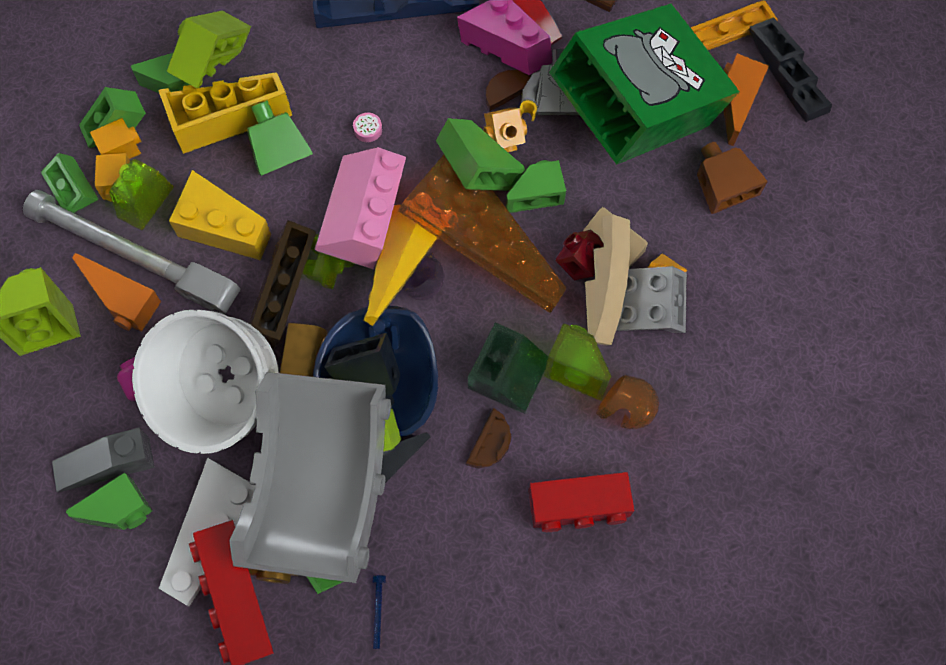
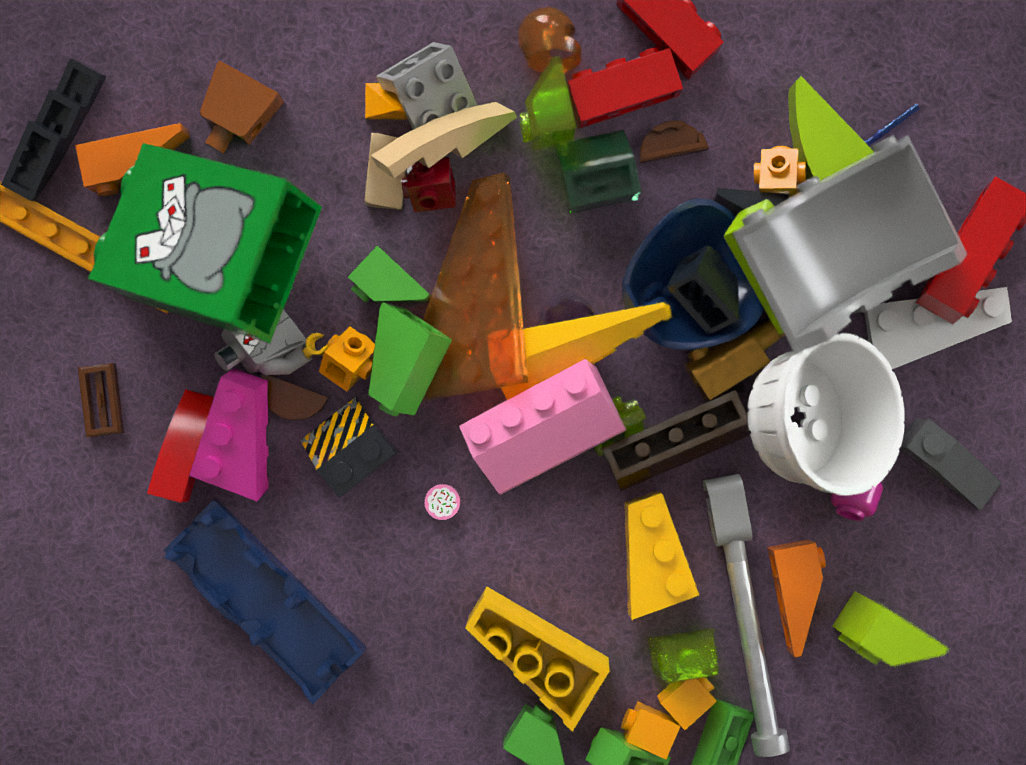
camera: 120 degrees left, 20 degrees up
(113, 506) = (979, 416): bright green slope -> none
(205, 43) = (487, 724): lime wedge -> none
(275, 140) = (534, 570): bright green torso -> none
(406, 493) = (780, 171): none -> light orange brick
(407, 546) = (821, 134): none -> lime slope
(446, 93) = (348, 447): none -> slope
(556, 432) = (624, 86): none -> red brick

